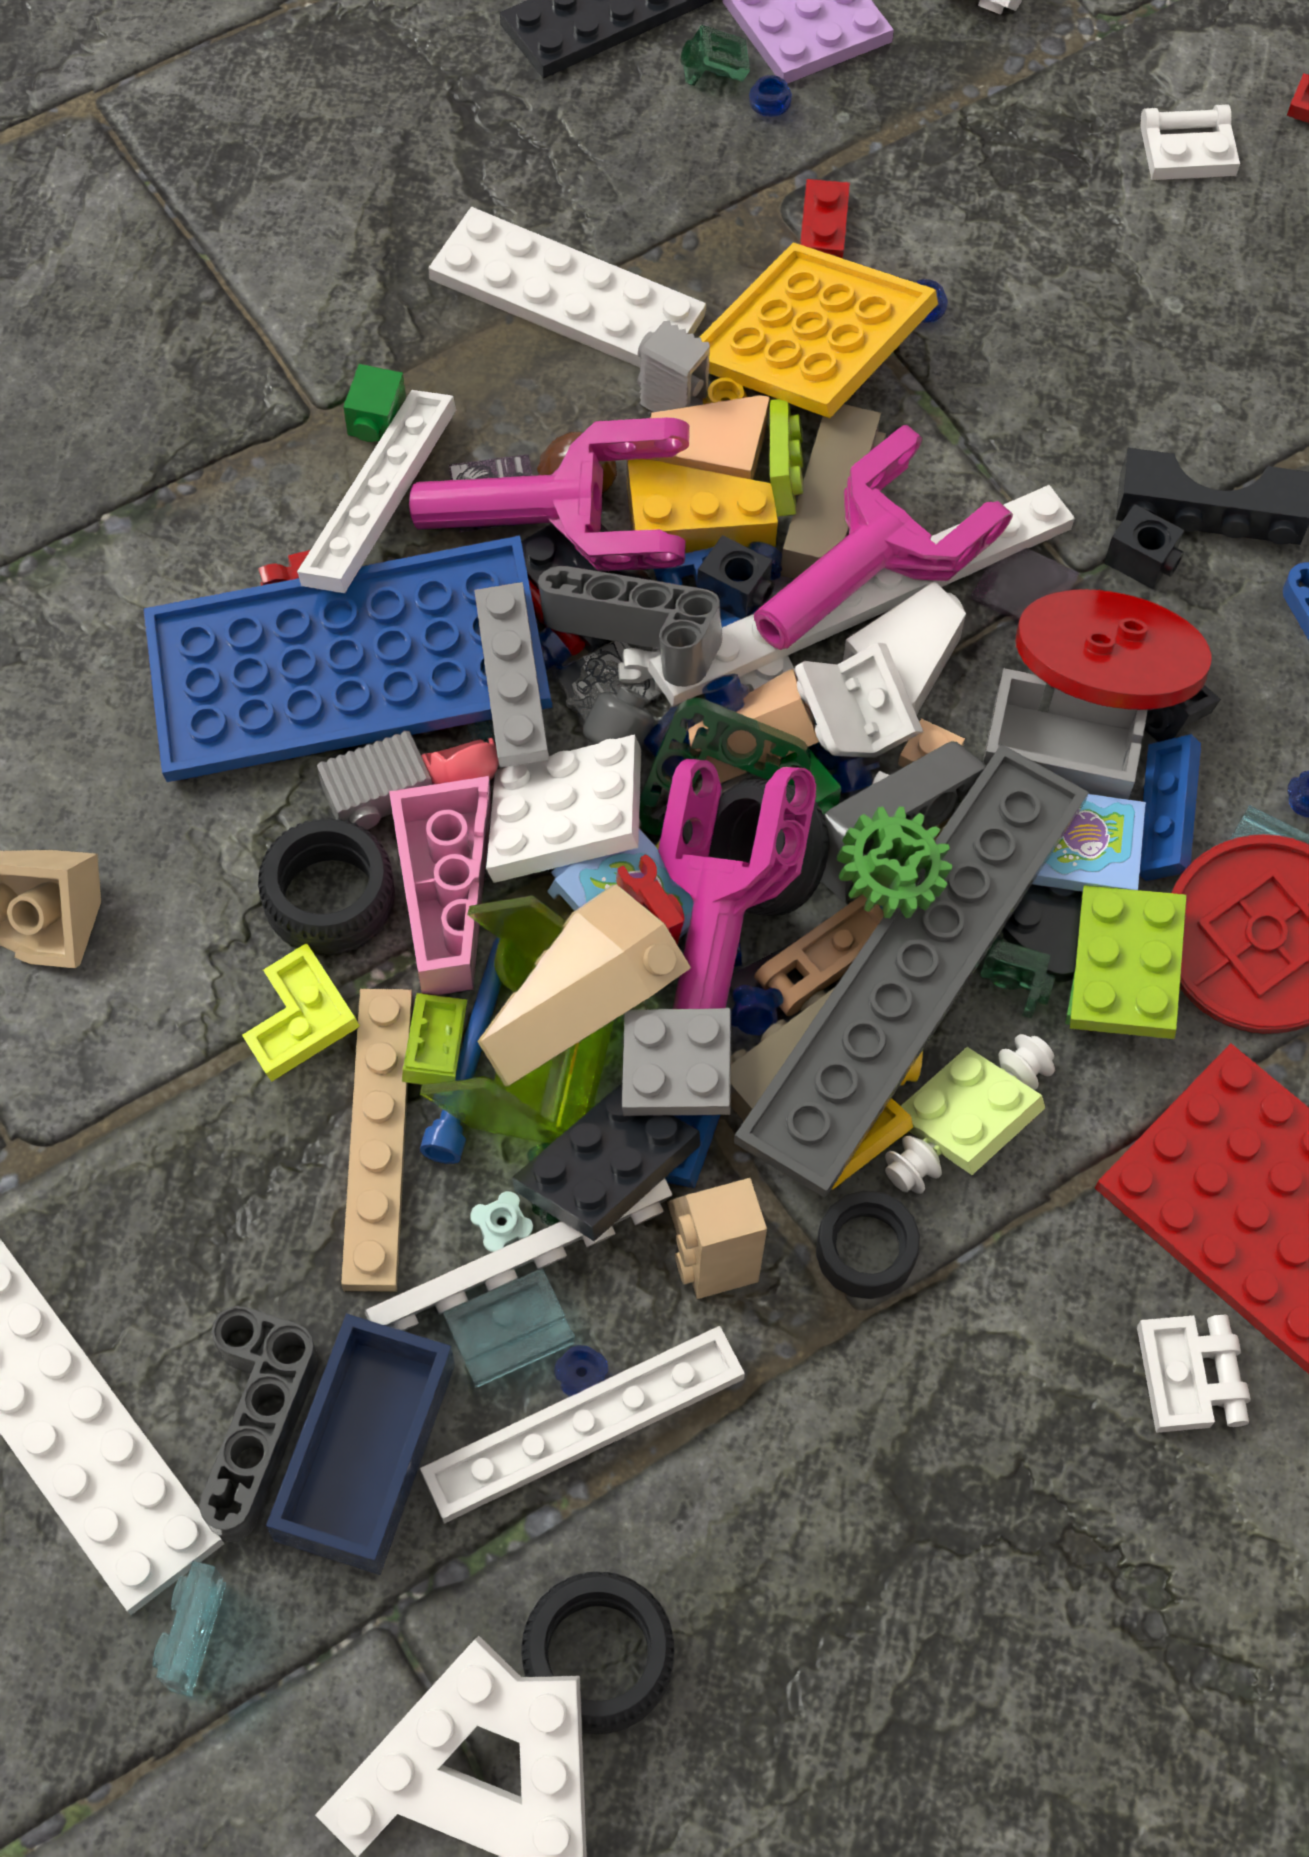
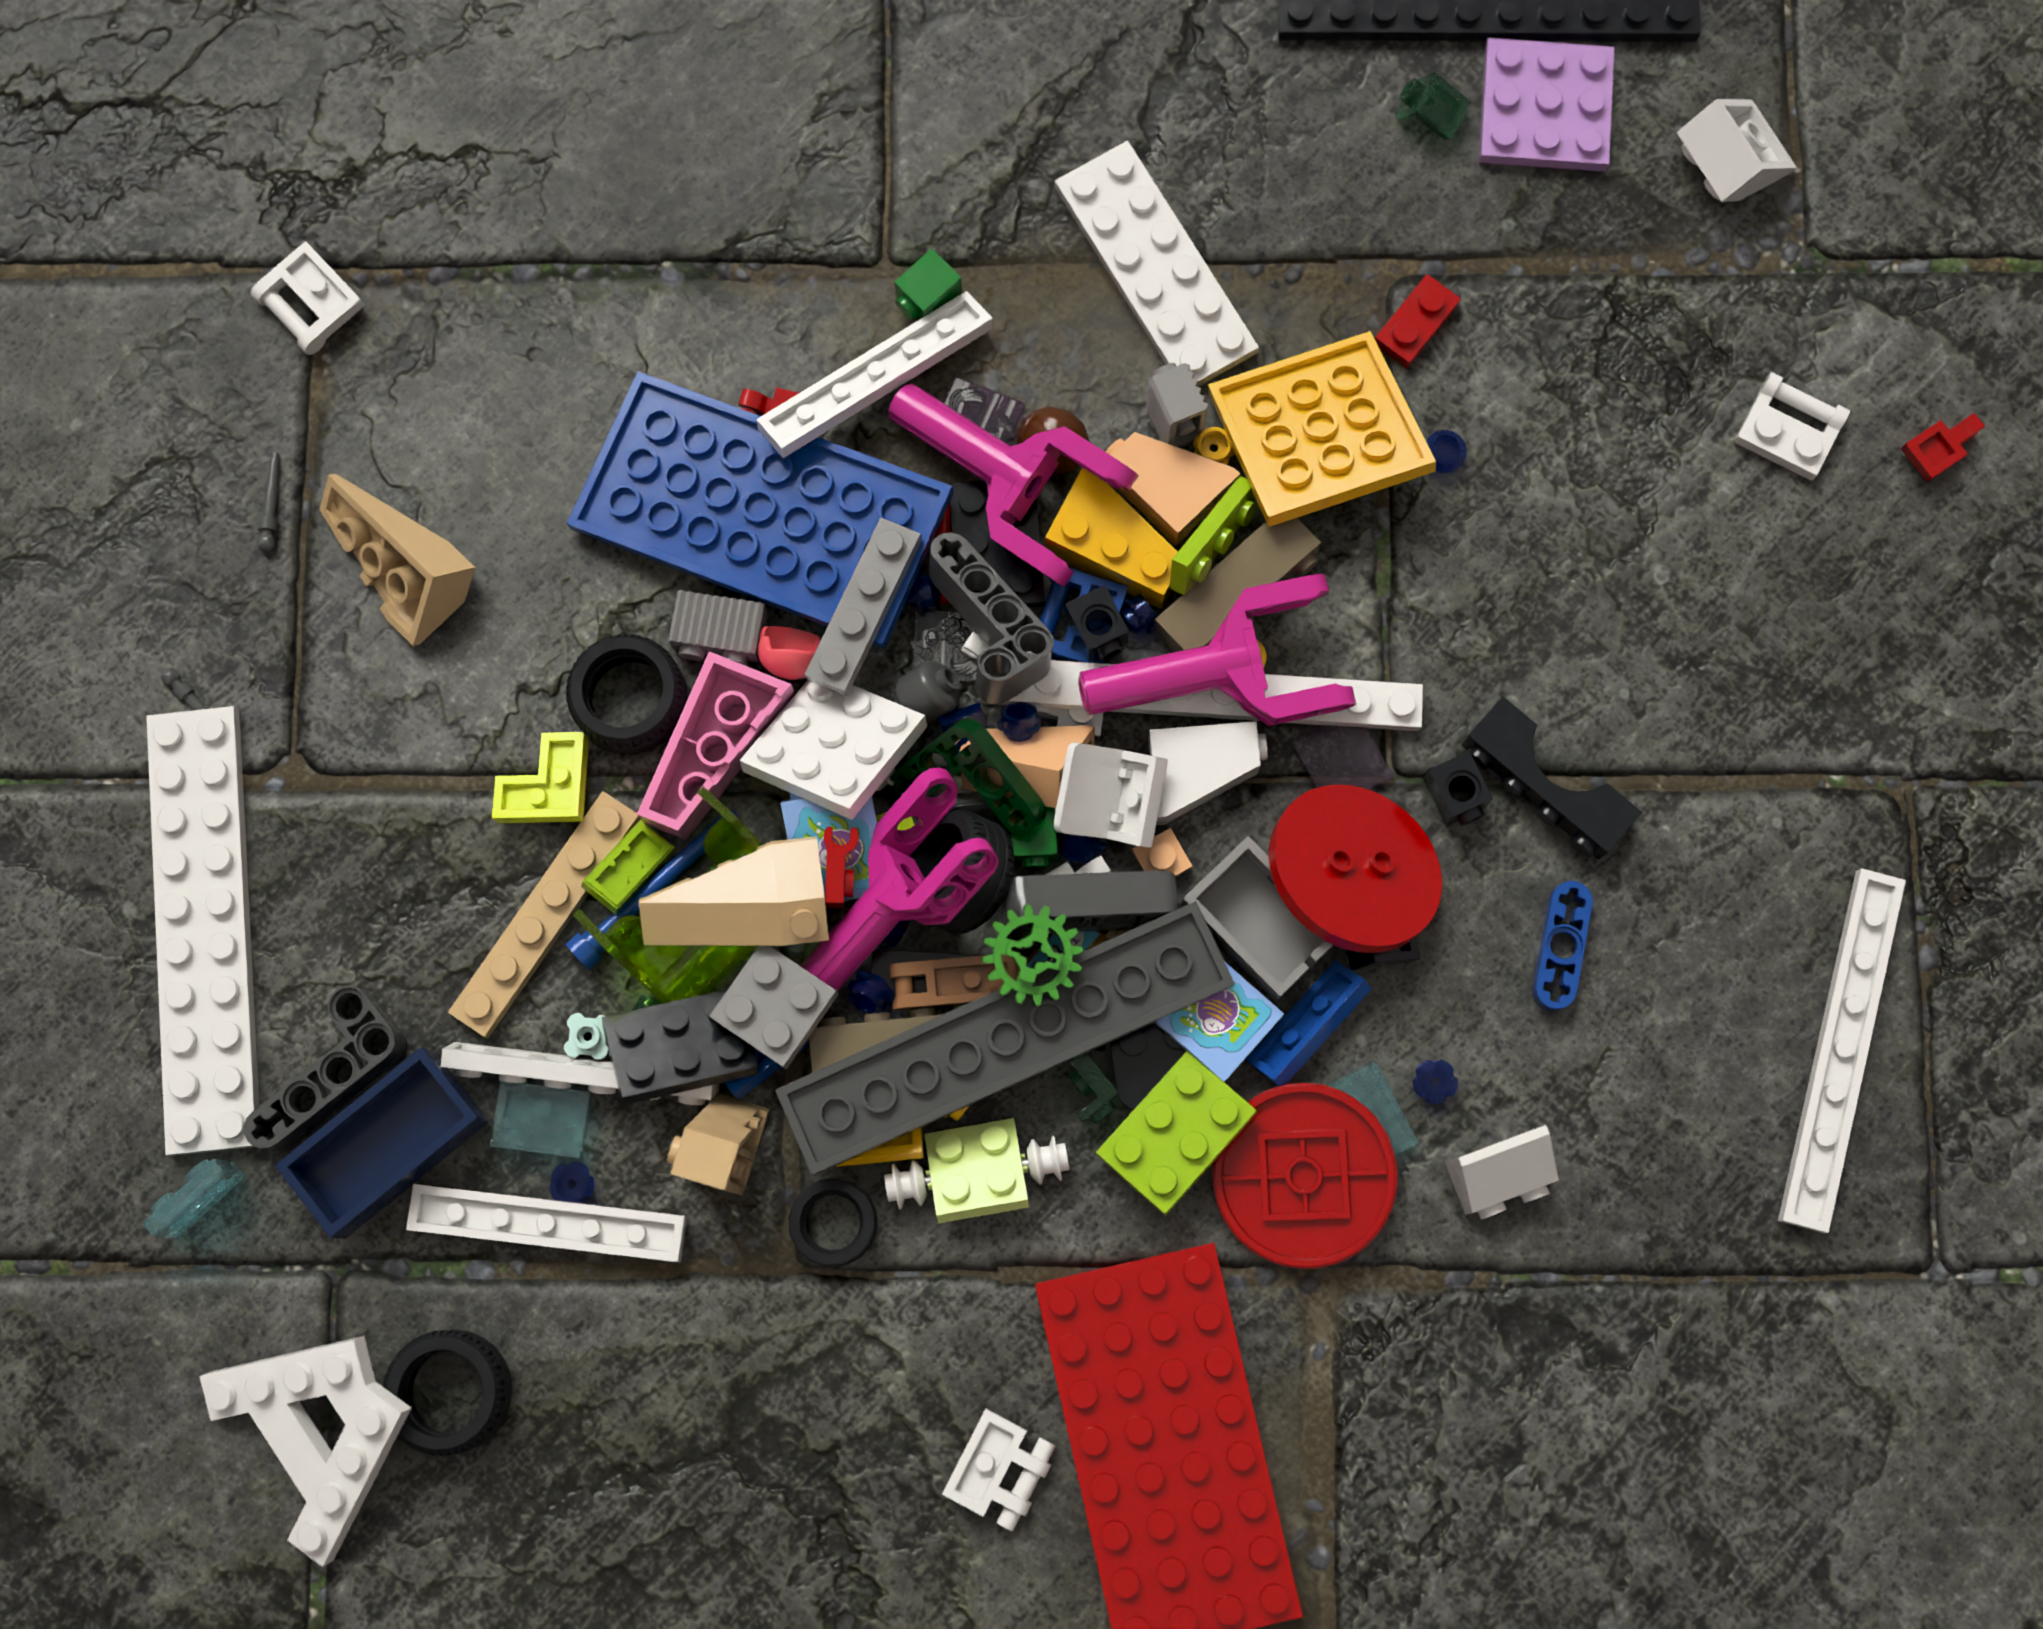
camera: 40 degrees right, 15 degrees up
(770, 96) = (1454, 172): clear blue plate -> none

